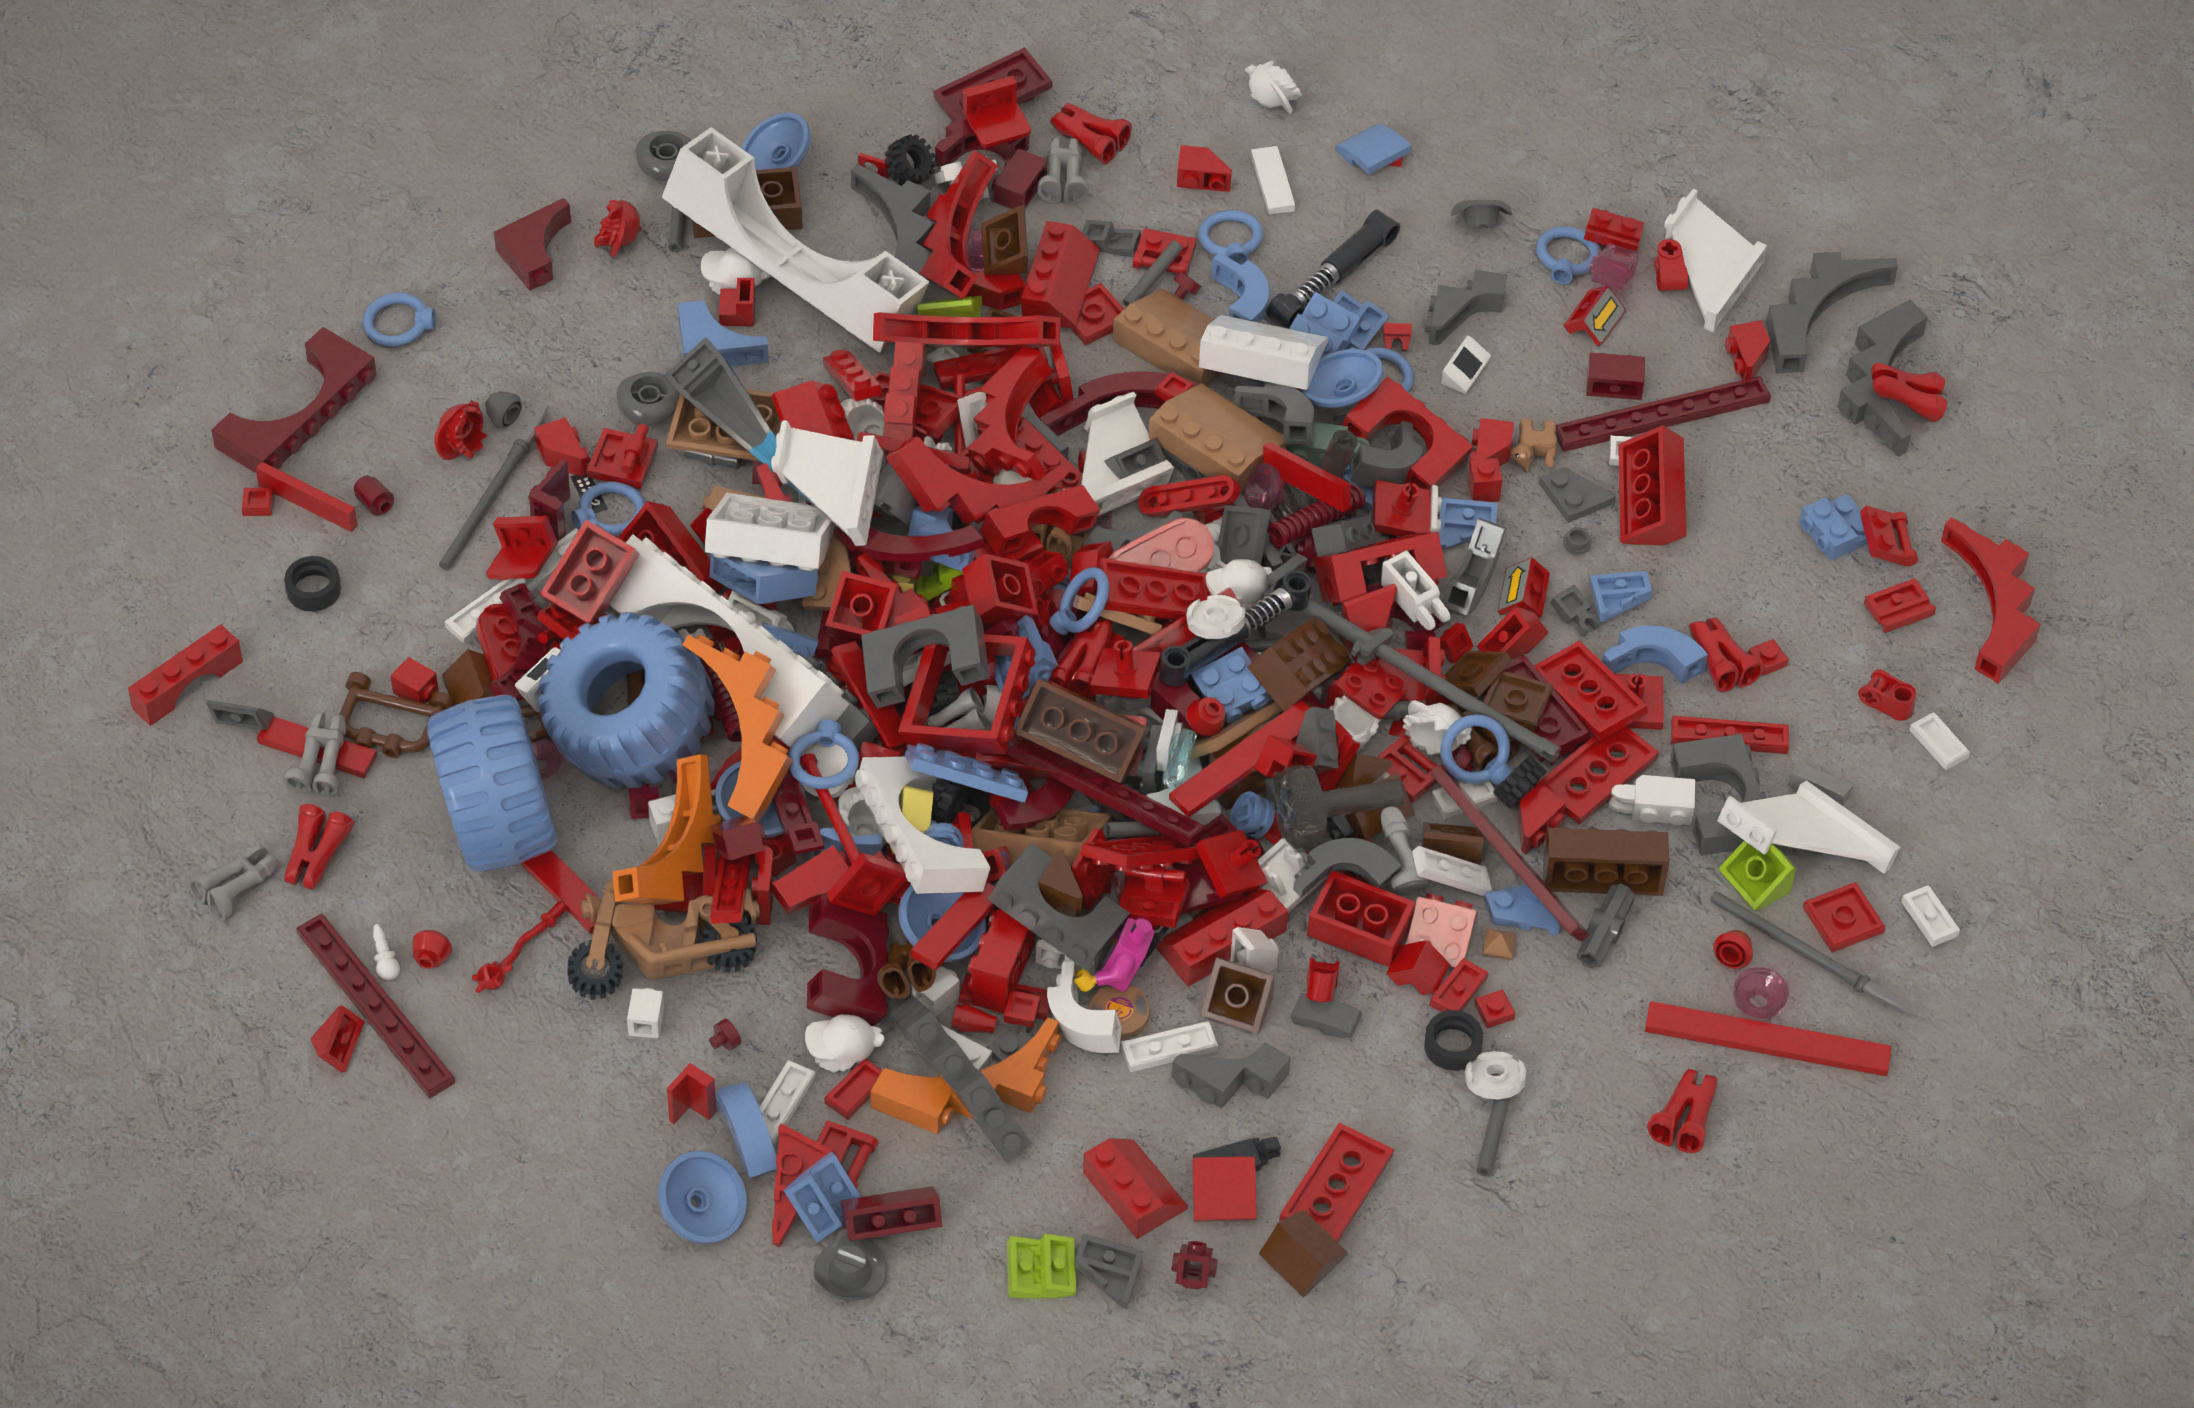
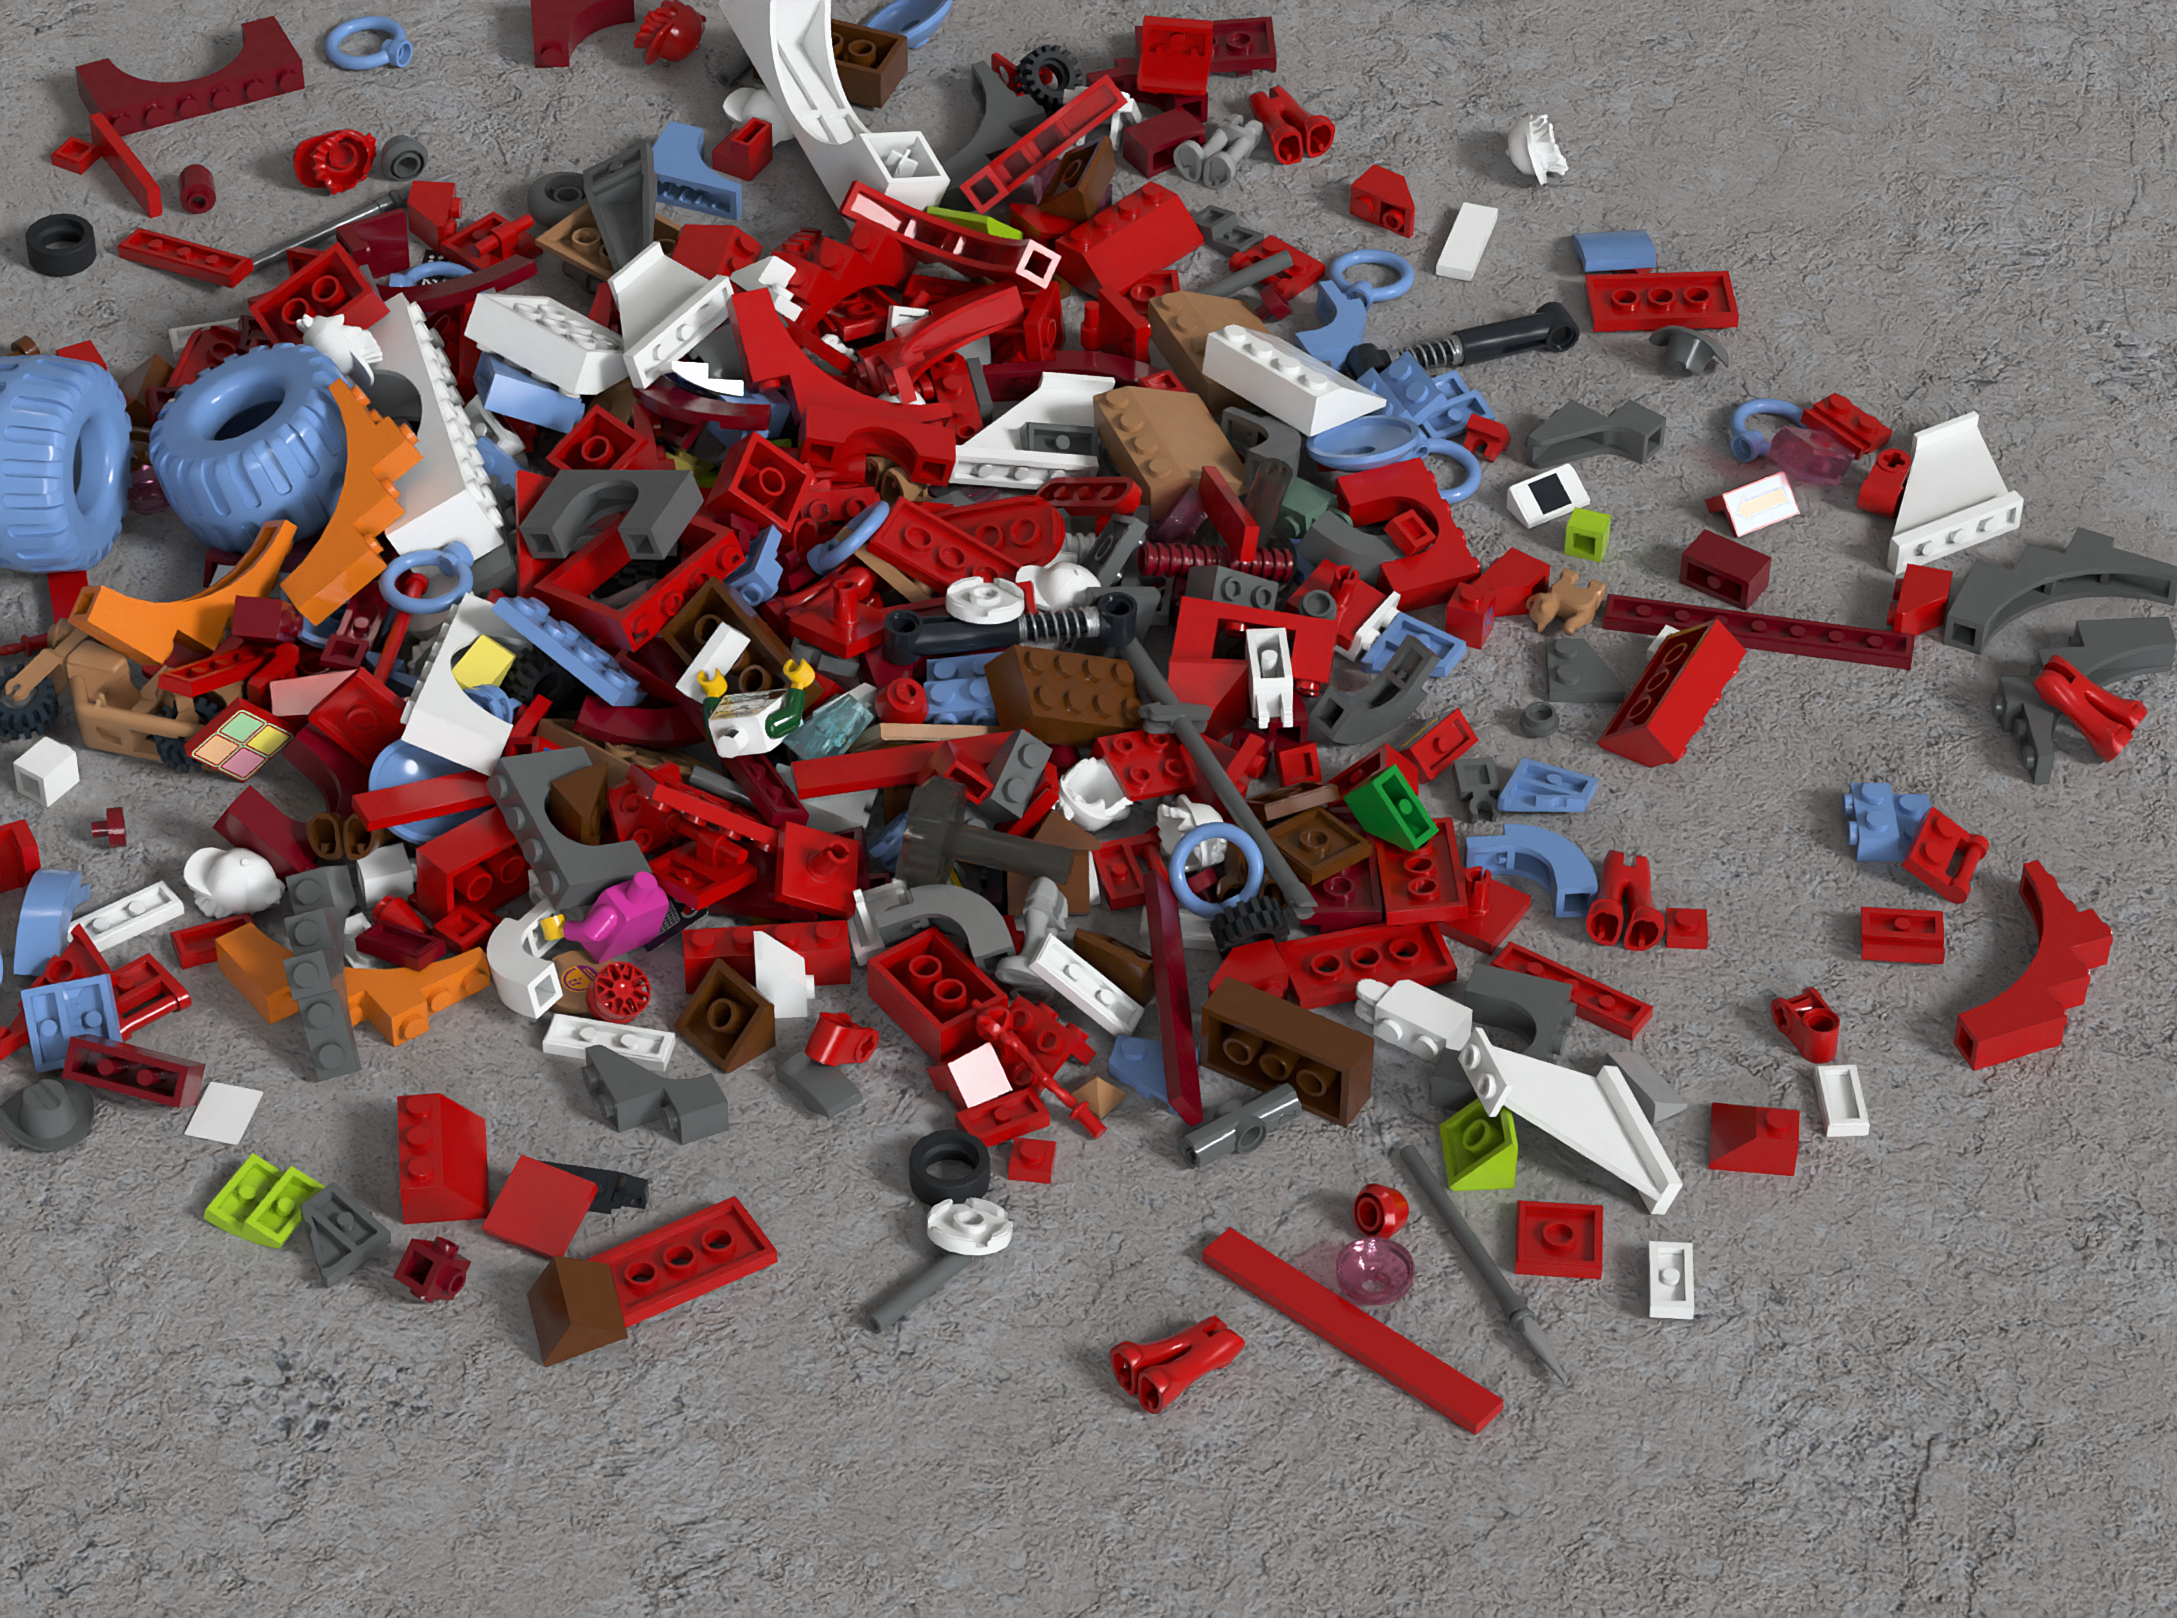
camera: 30 degrees right, 10 degrees down
(411, 557) = (185, 258): none -> red tile
(635, 599) = (346, 345): none -> white hair
(648, 512) = (463, 289): none -> dark red tile
(776, 933) = (240, 739): none -> tile
(882, 424) = (774, 274): none -> white slope
(899, 520) = (695, 378): none -> white slope
(961, 1214) = (224, 1113): none -> white sticker
(995, 1040) = (400, 945): none -> dark red tile
(1075, 743) = (719, 652): none -> white tile
(1111, 353) = (1115, 327): none -> red plate
(1134, 775) = (754, 719): none -> torso
(1156, 1011) = (617, 993): none -> red wheel
(1401, 522) = (1318, 605): none -> dark grey plate
(1418, 437) = (1409, 533): none -> red plate
(1424, 926) = (996, 1024): none -> red piece
(1433, 164) = (1677, 289): none -> red plate
(1512, 385) = (1587, 534): none -> lime plate
(1548, 654) = (1391, 809): none -> green slope
(1910, 790) = (1753, 1139): none -> red slope

